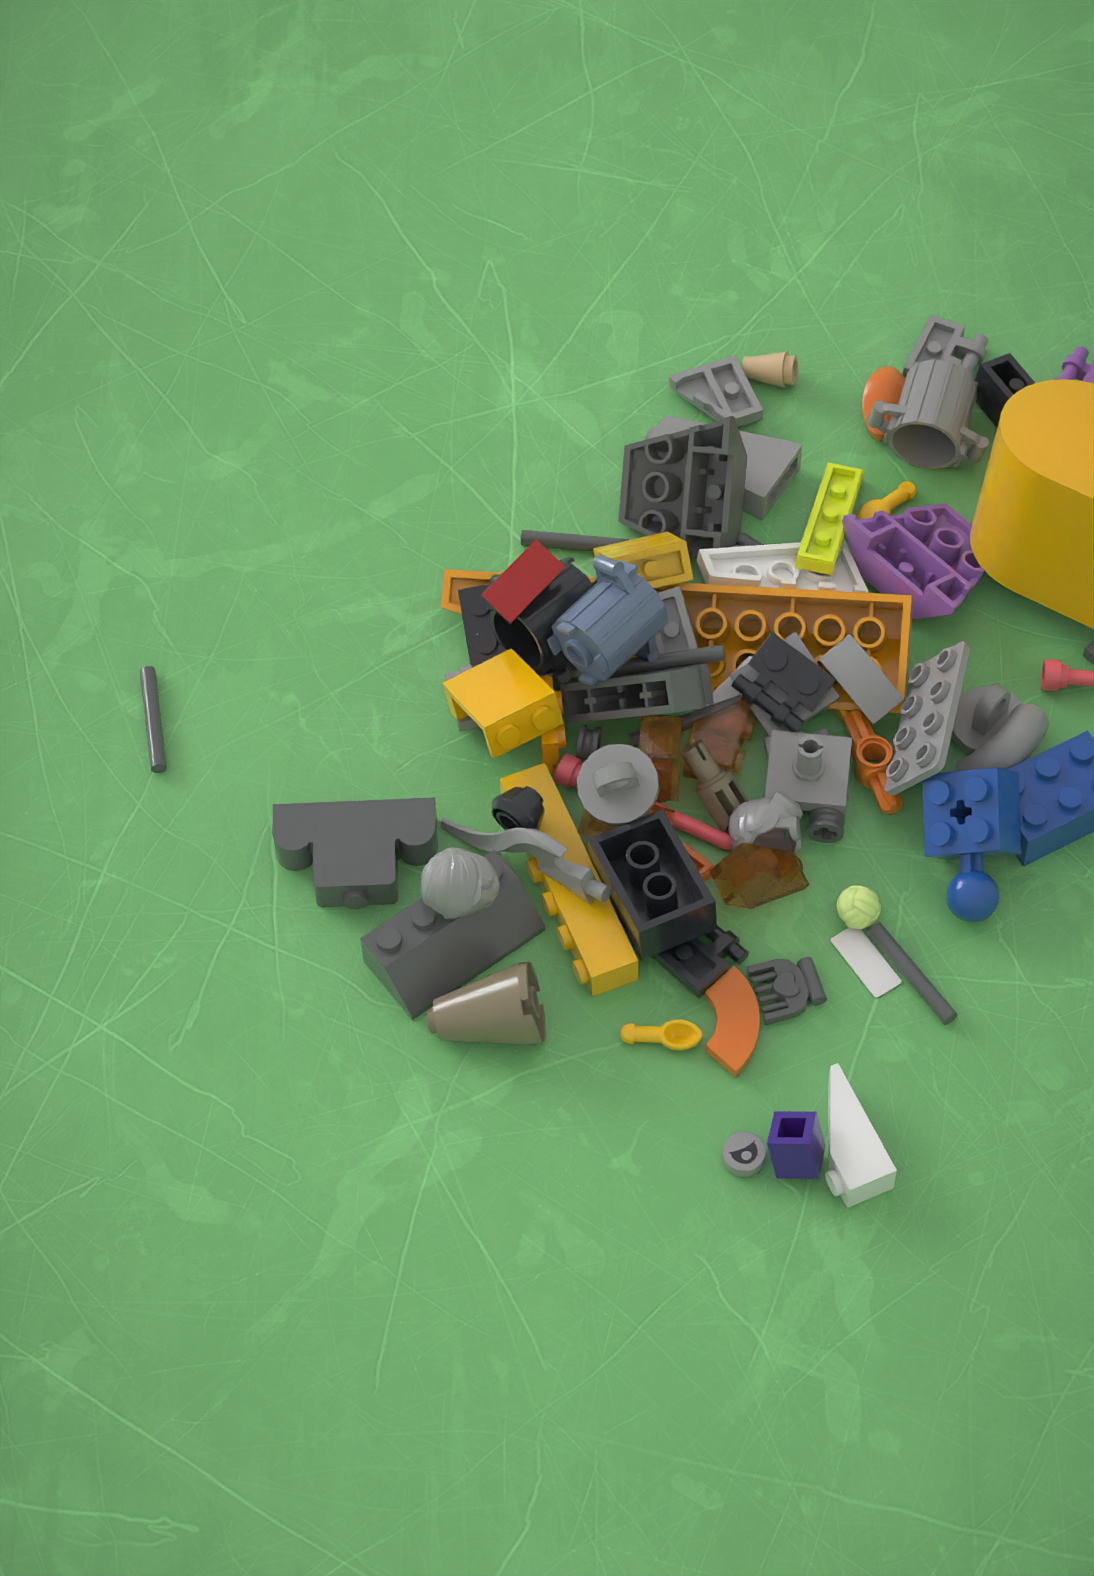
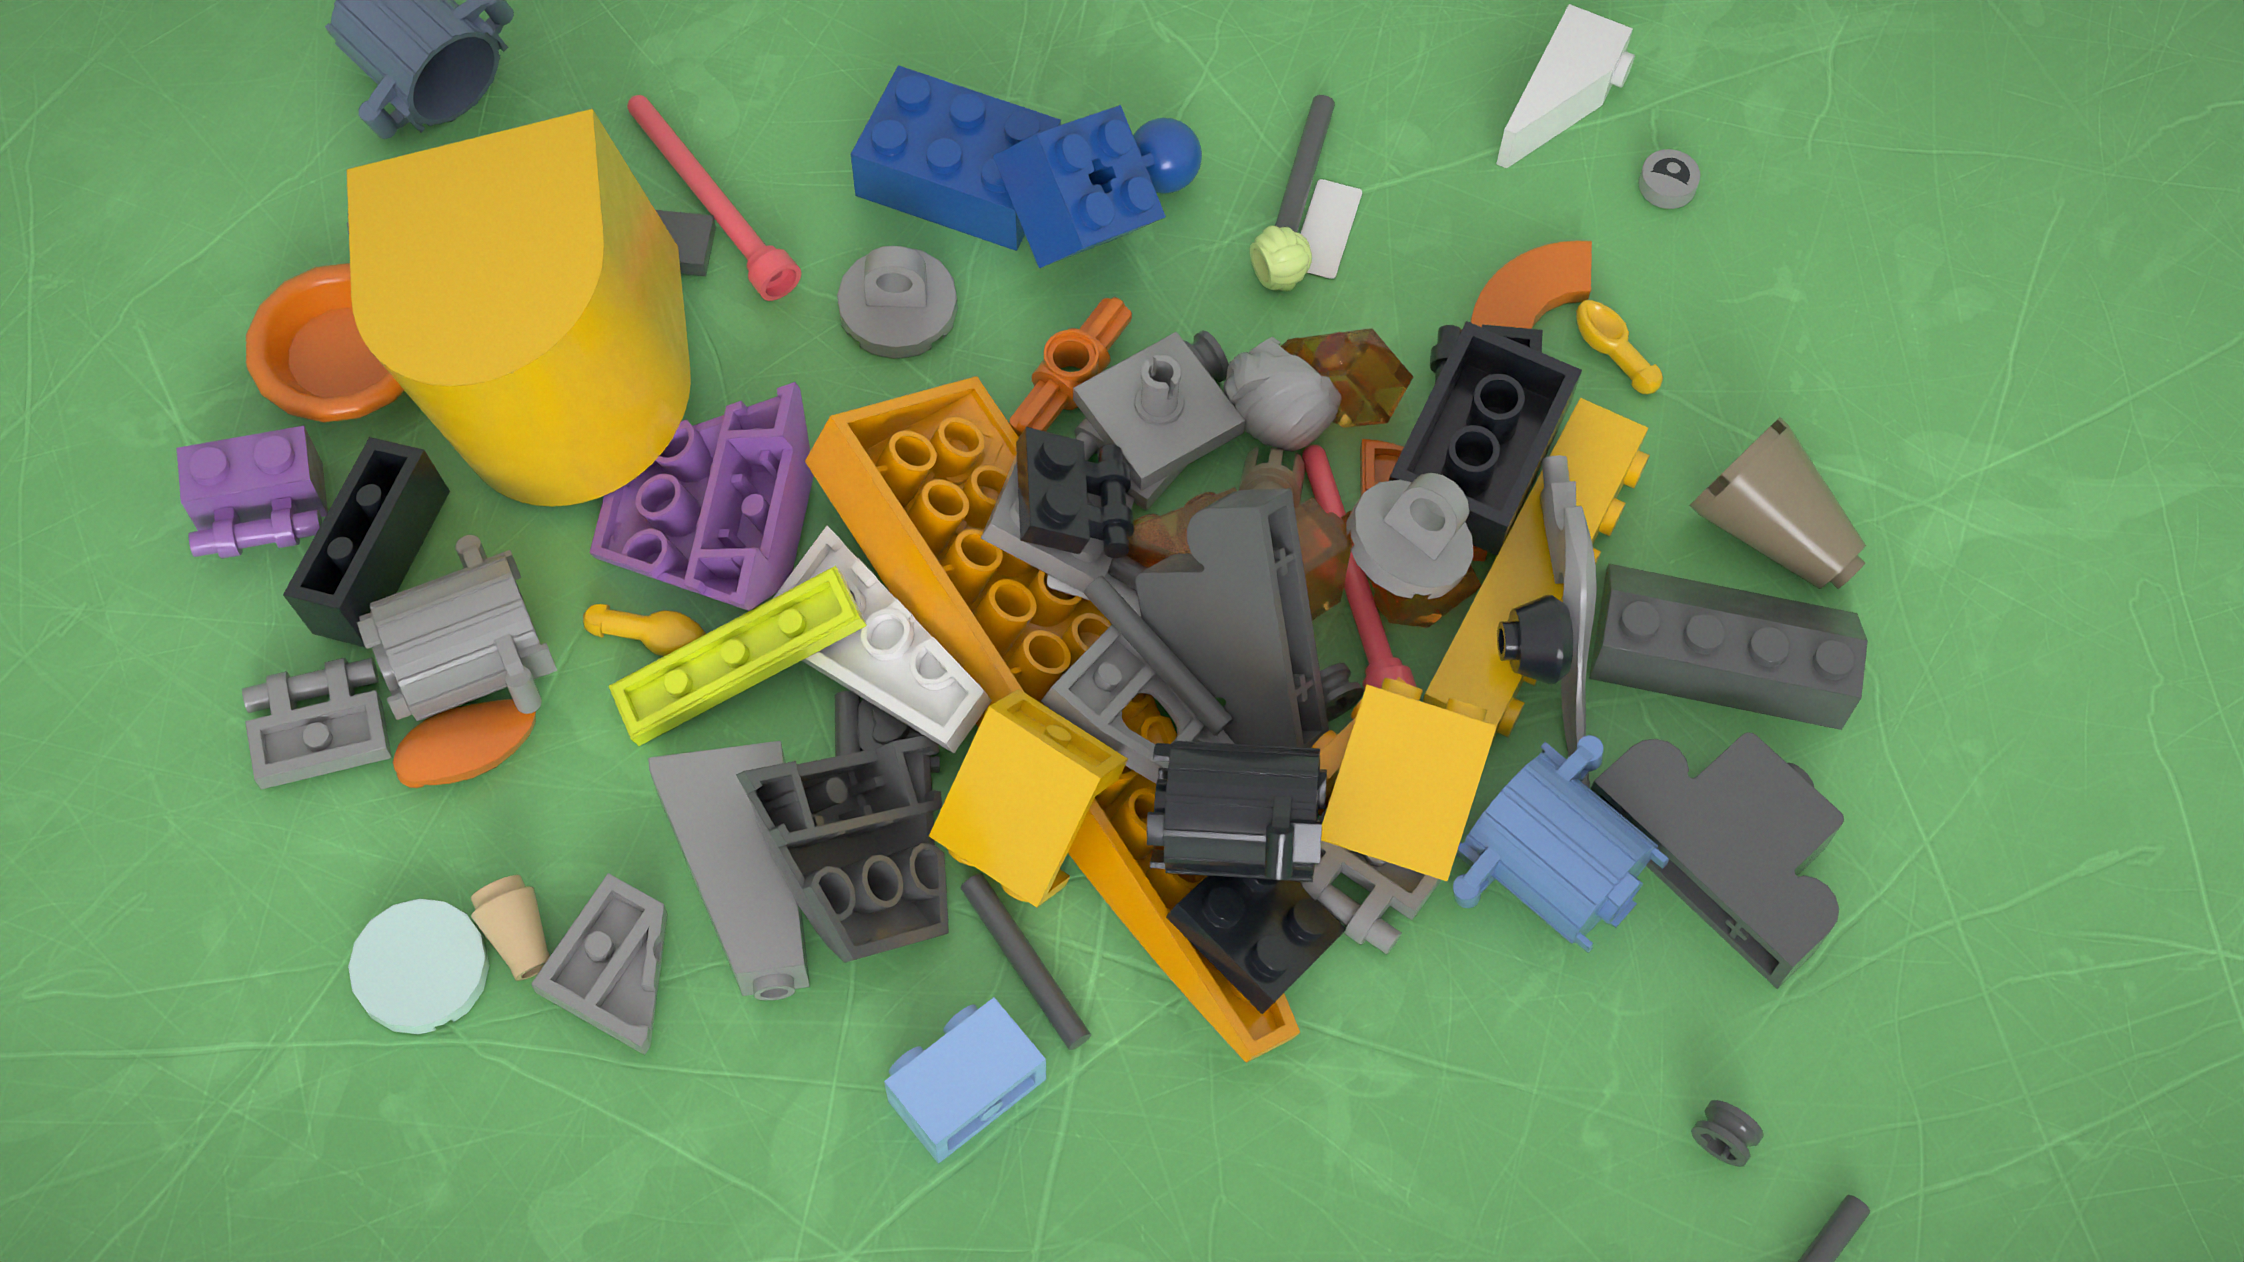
camera: 135 degrees left, 5 degrees up
(236, 736) = (1727, 1133): none -> dark grey bush
(417, 758) = (1558, 846): none -> medium blue container
(458, 883) = (1711, 608): light grey hair -> none
(523, 581) = (1258, 796): red slope -> none
(543, 478) = (964, 1078): none -> light blue brick
(610, 622) = (1222, 677): sand blue container -> none
(786, 327) = (418, 966): none -> light aqua tile
(790, 989) = (1434, 271): dark grey piece -> none
(796, 1145) = (1628, 112): dark purple brick -> none
(861, 679) = (987, 421): light grey slope -> none
(927, 718) = (990, 301): light grey bracket -> none
(1012, 742) = (946, 224): light grey cylinder -> none

